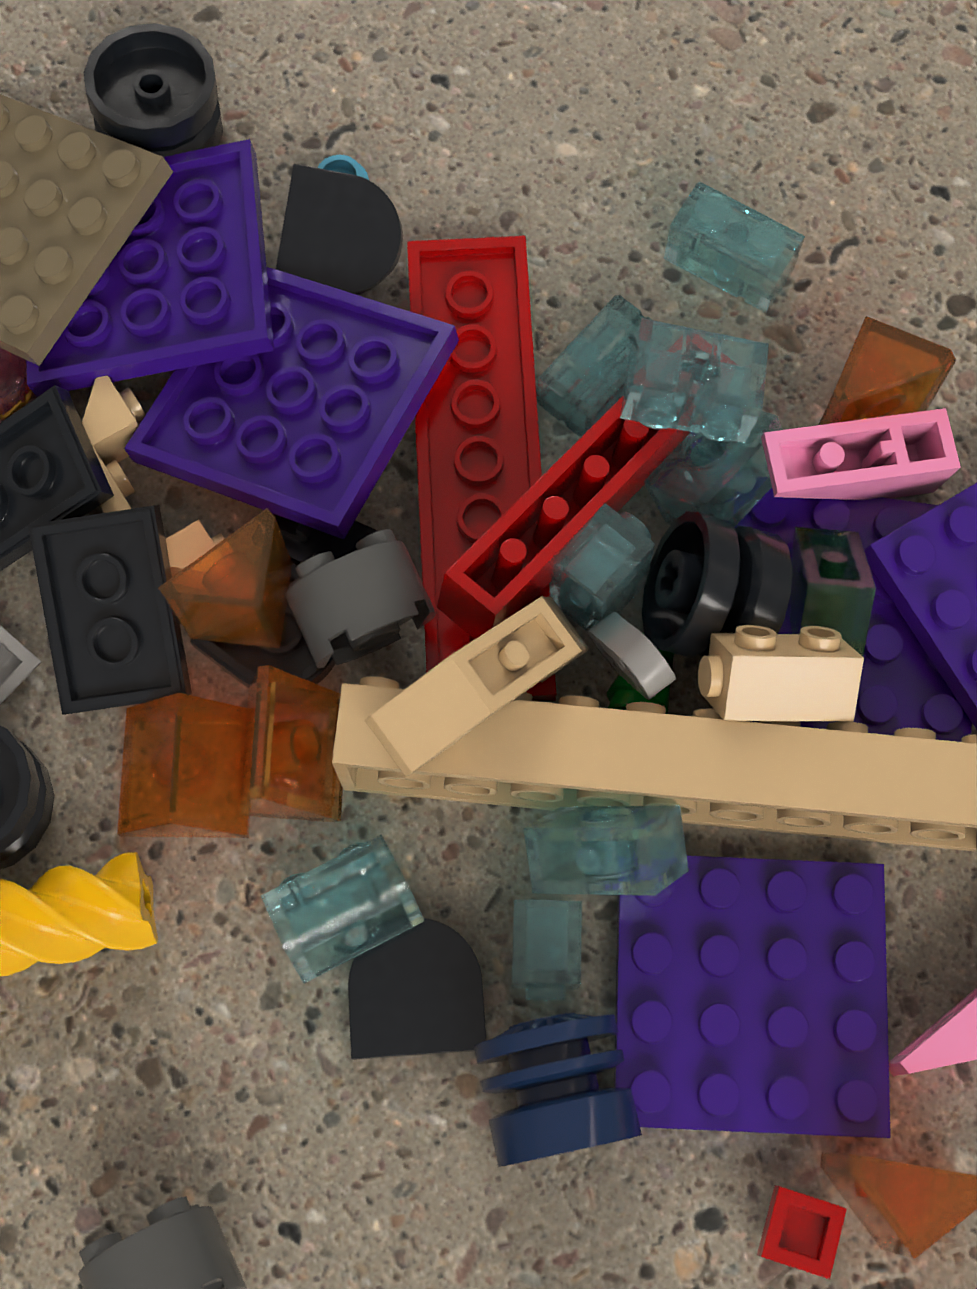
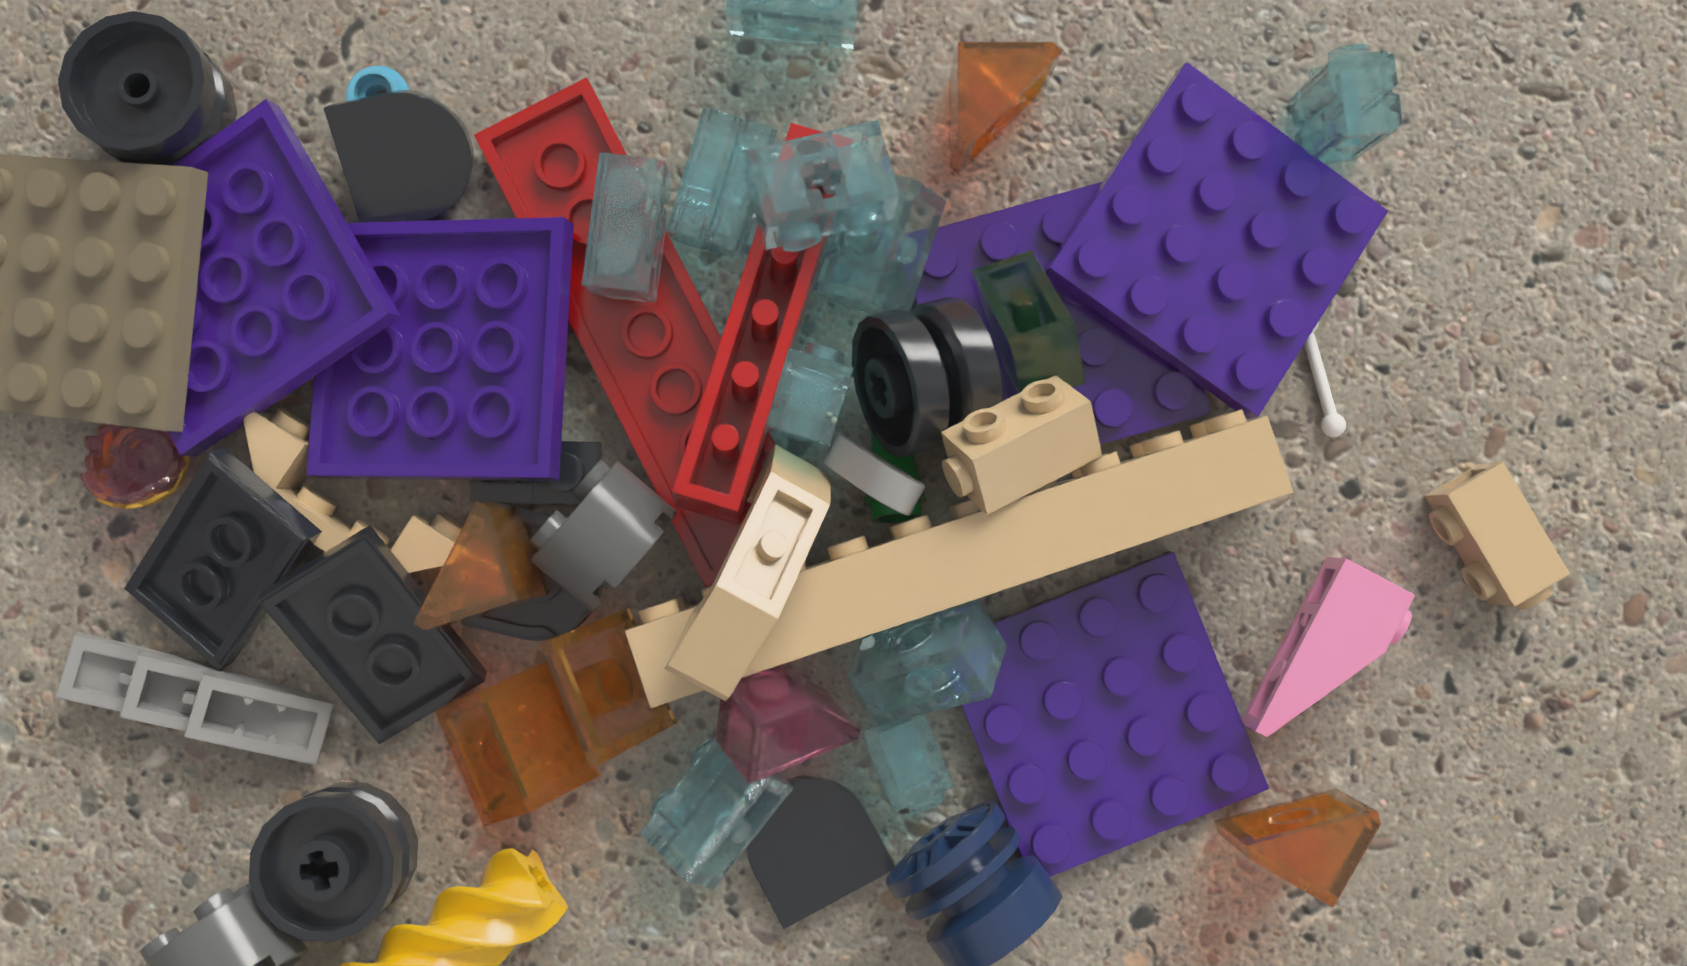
camera: 25 degrees left, 15 degrees up
(439, 841) = (779, 722): none -> clear pink slope
(505, 359) = (627, 227): none -> clear light blue brick
(802, 1232) = (1224, 899): red plate -> none
(863, 457) = (1006, 179): bright pink slope -> none

